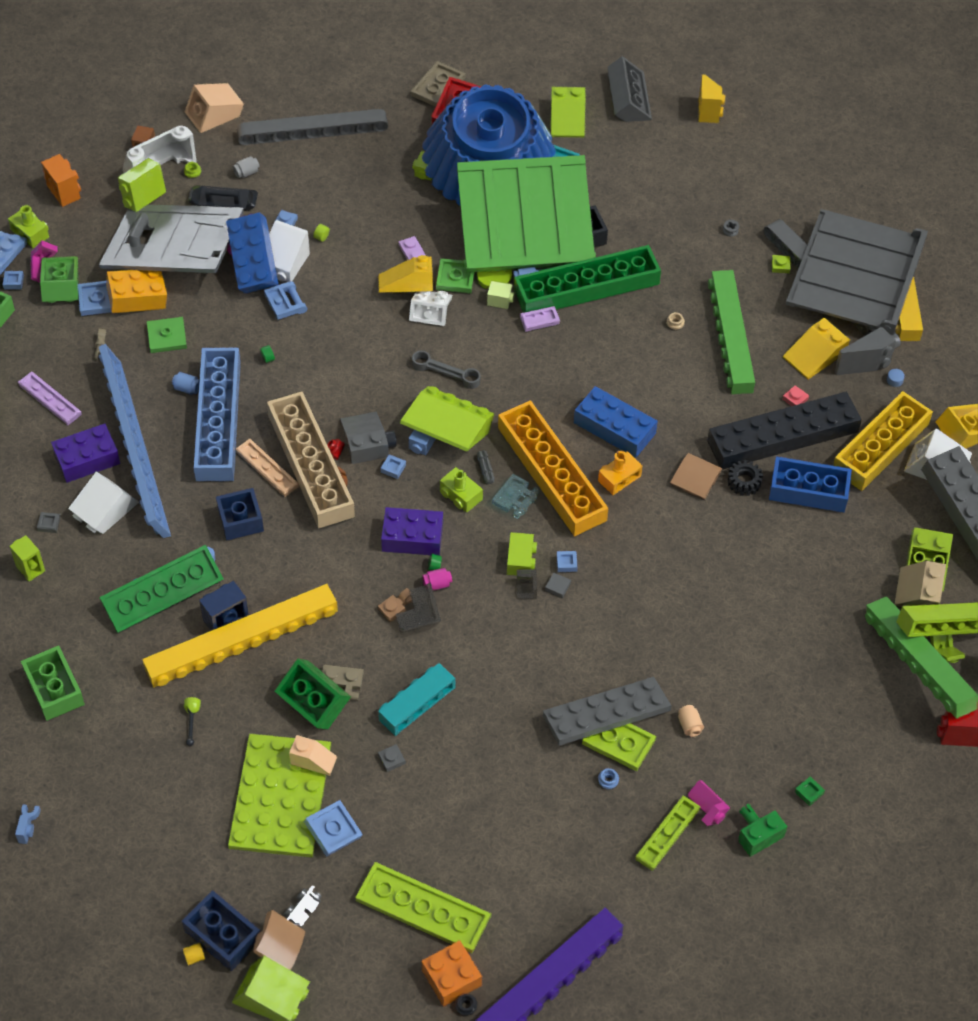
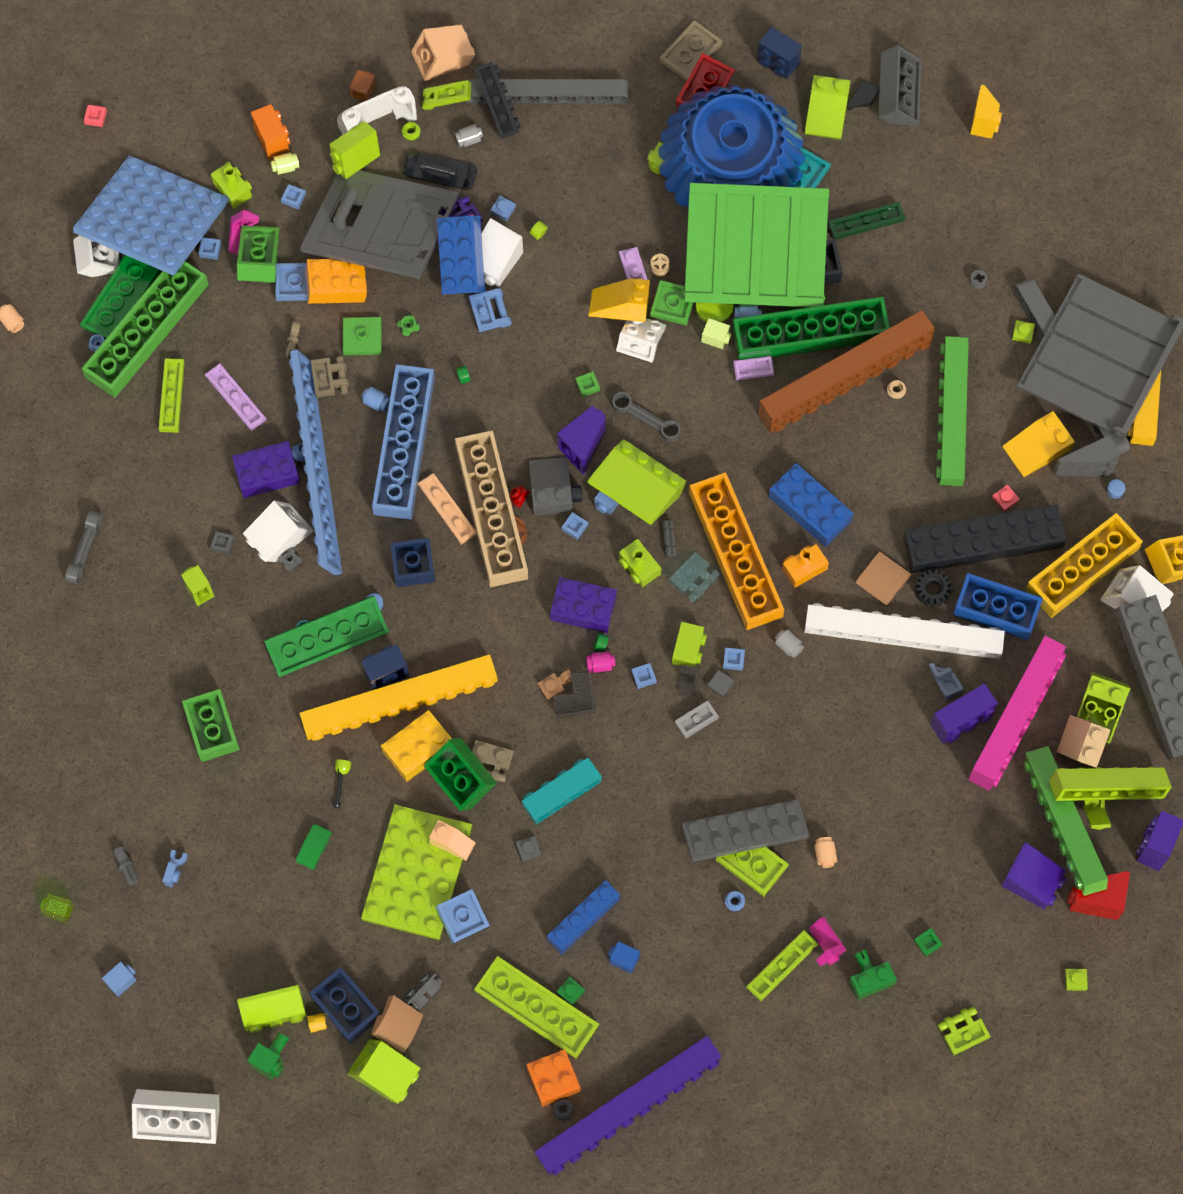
camera: 10 degrees right, 15 degrees up
(77, 206) = (284, 163): none -> yellowish green brick
(88, 231) = (293, 196): none -> medium blue plate
(116, 436) = (297, 453): none -> medium blue plate
(117, 533) = (289, 565): none -> dark grey plate
(133, 372) = (323, 378): none -> dark tan plate
(143, 995) = (267, 1060): none -> green brick
(144, 943) = (272, 1009): none -> lime slope
(170, 784) = (313, 846): none -> green slope
(209, 316) = (408, 320): none -> bright green plate
(221, 137) = (446, 94): none -> lime plate
(261, 675) = (415, 745): none -> yellow brick
(268, 132) = (496, 99): none -> black brick
(386, 349) = (587, 384): none -> bright green plate
(388, 390) = (582, 438): none -> dark purple slope
(441, 244) = (660, 260): none -> tan wheel
(456, 886) = (570, 991): none -> green plate
(457, 813) = (583, 917): none -> blue brick
(481, 587) = (643, 676): none -> medium blue plate
(505, 845) = (623, 957): none -> blue brick
(518, 74) = (779, 53): none -> dark blue brick
(540, 619) = (696, 719): none -> light grey plate
(598, 102) = (864, 95): none -> black tile
(617, 541) = (789, 643): none -> light grey brick
(622, 193) = (866, 220): none -> dark green plate
(625, 309) = (846, 372): none -> dark orange brick
(726, 517) = (904, 631): none -> white brick
(775, 556) = (946, 681): none -> sand blue slope
(799, 578) = (964, 714): none -> dark purple brick
(851, 573) = (1016, 716): none -> dark pink brick
(867, 875) = (967, 1036): none -> lime plate
(901, 715) = (1034, 877): none -> dark purple slope
(964, 806) = (1076, 979): none -> lime plate

